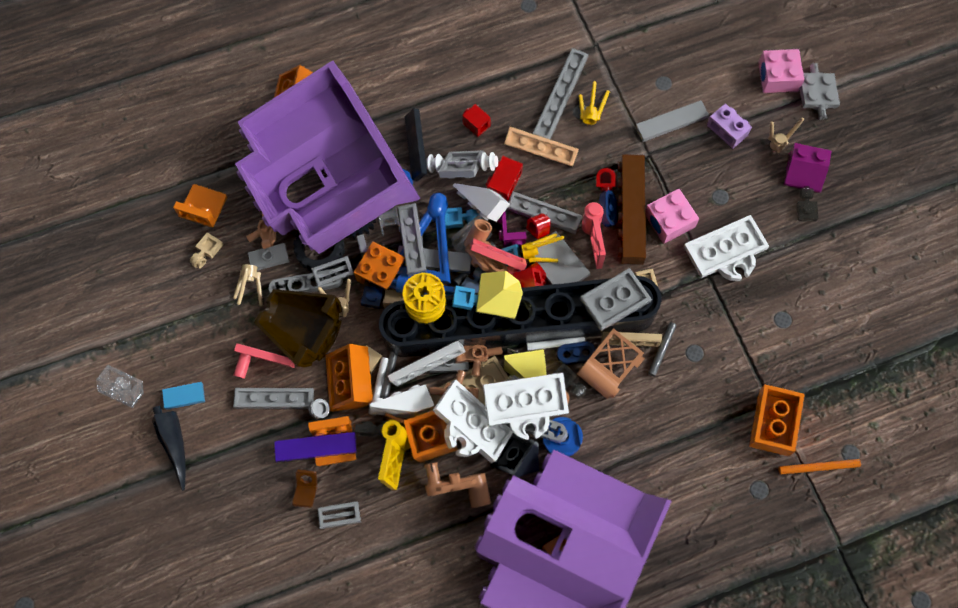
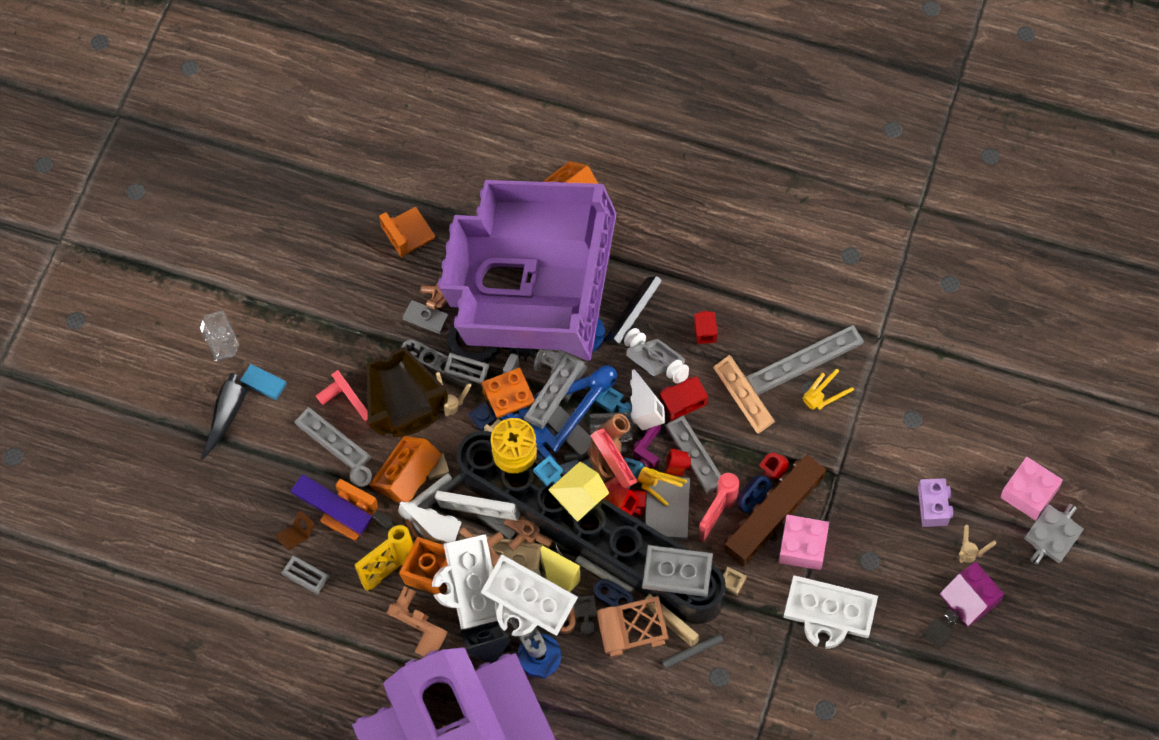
camera: 40 degrees right, 5 degrees down
(208, 247) = (383, 270): tan plate -> none
(248, 274) = (395, 319): tan plant -> none
(672, 121) = (886, 459): light grey tile -> none

